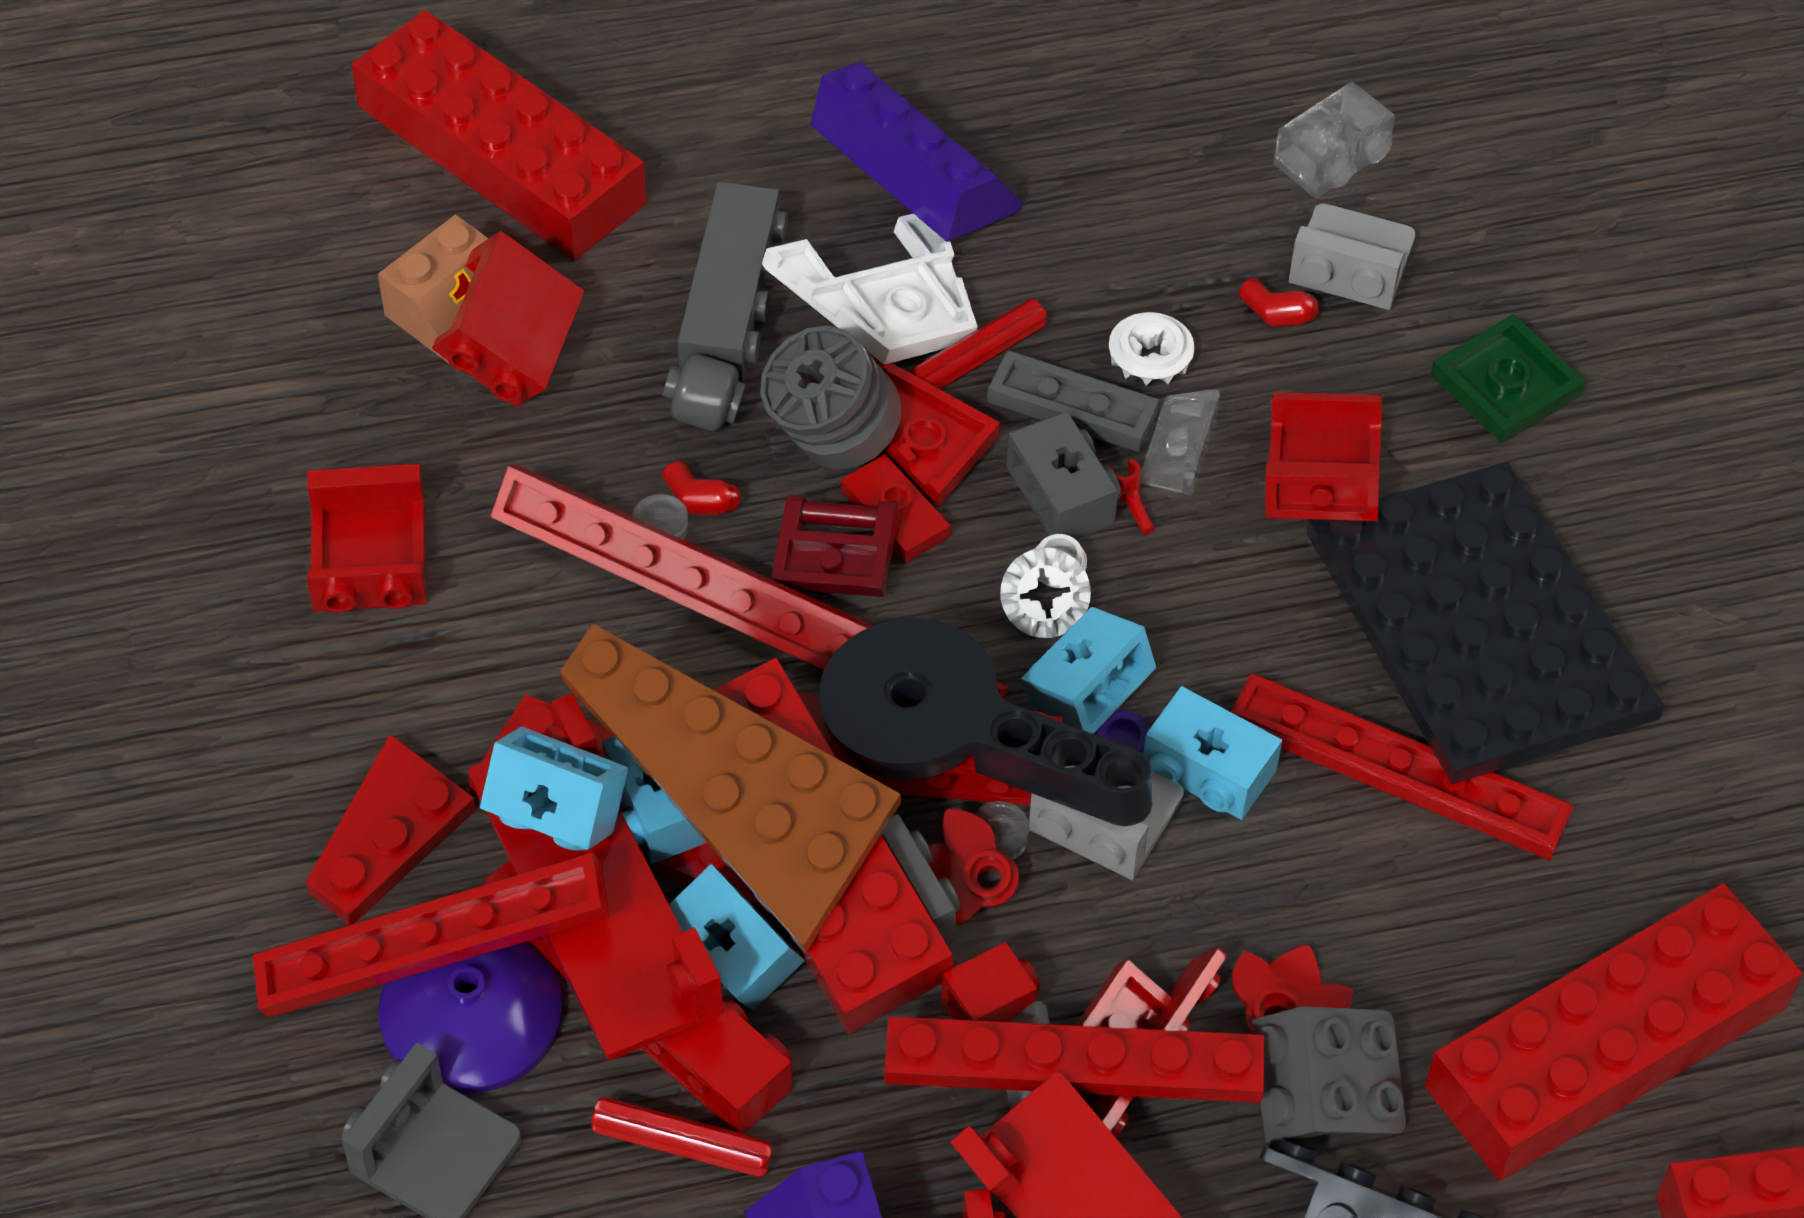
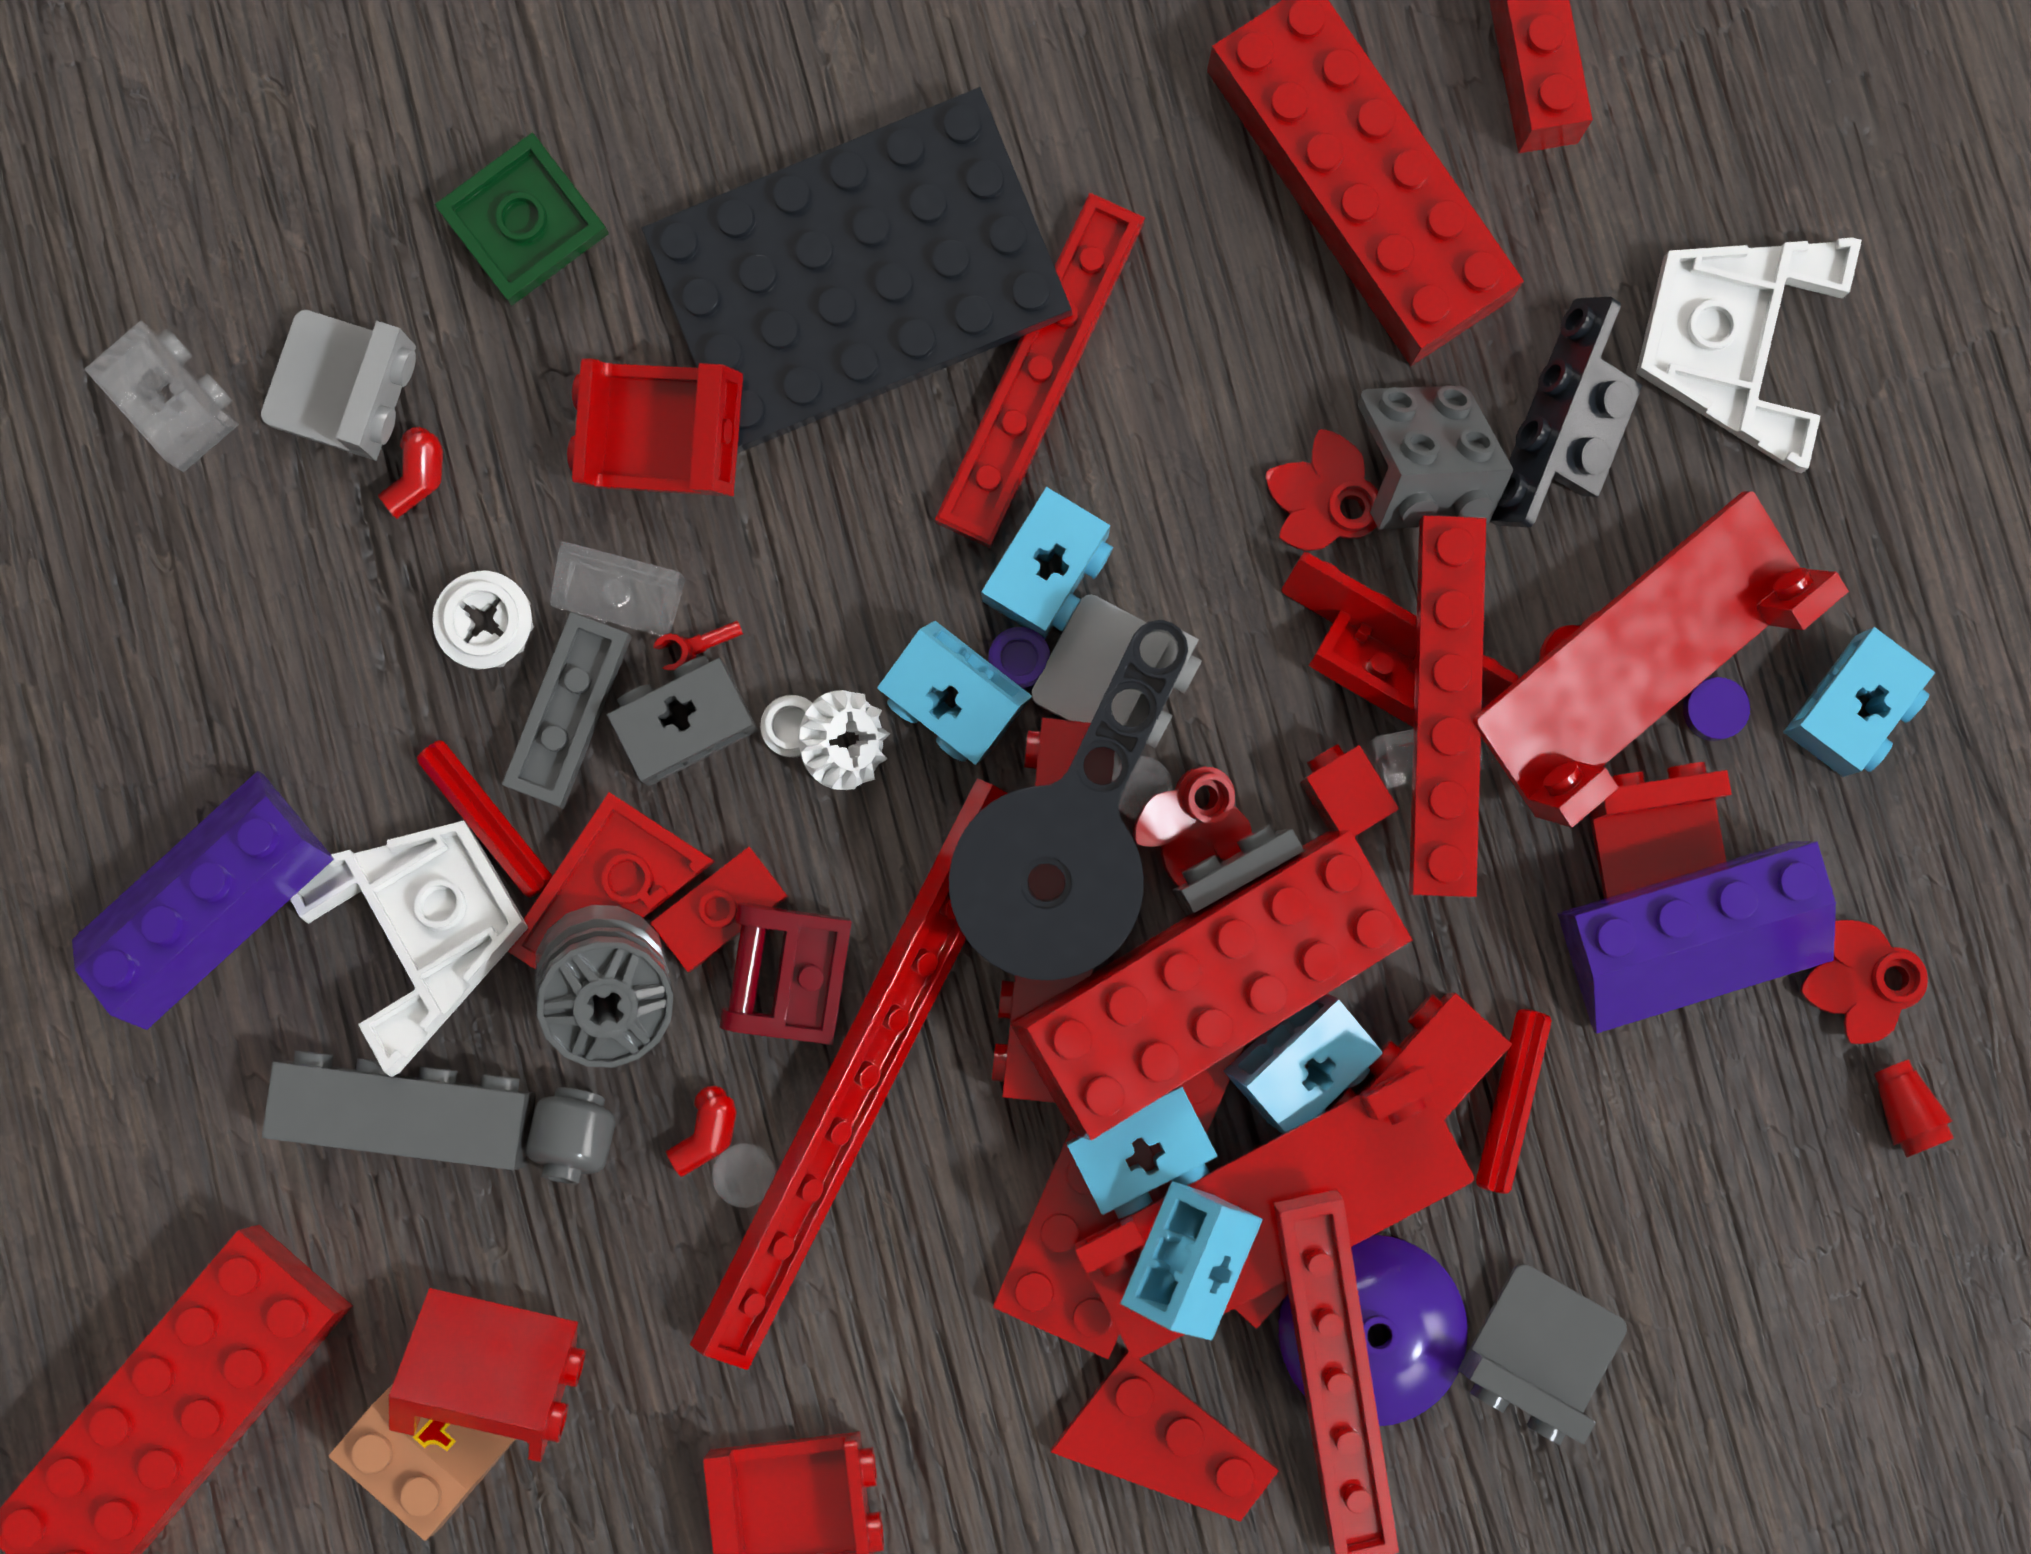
camera: 90 degrees left, 30 degrees up
(756, 794) = (1198, 1040): dark orange wing -> none

